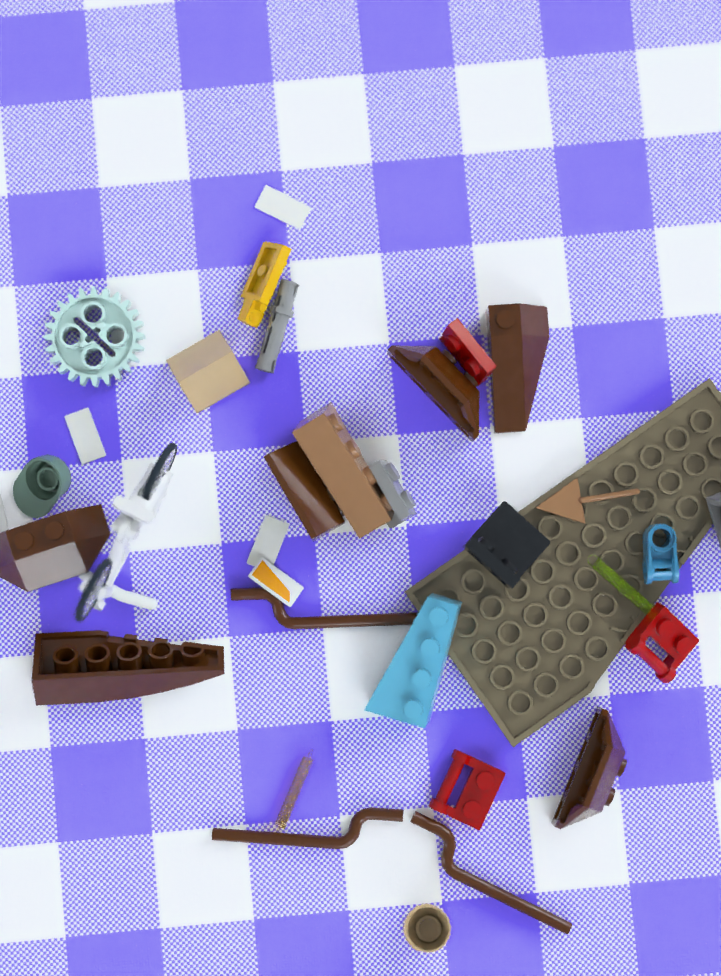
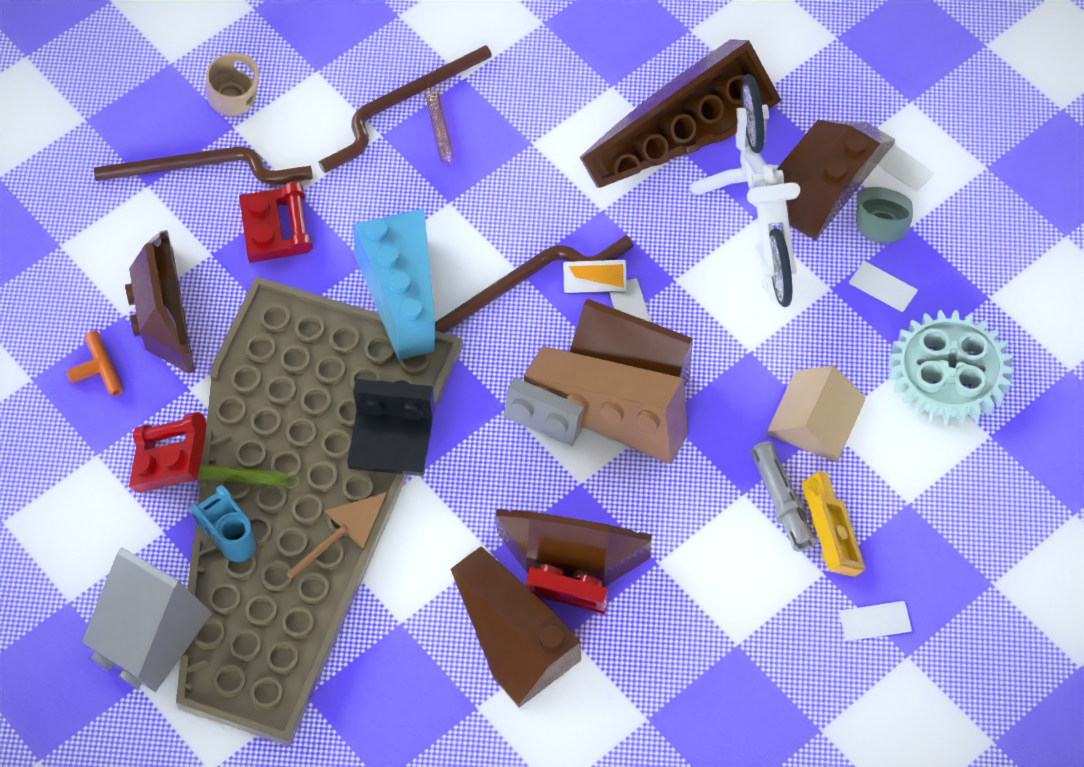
camera: 150 degrees right, 25 degrees down
(661, 756) = (99, 364): none -> orange piece

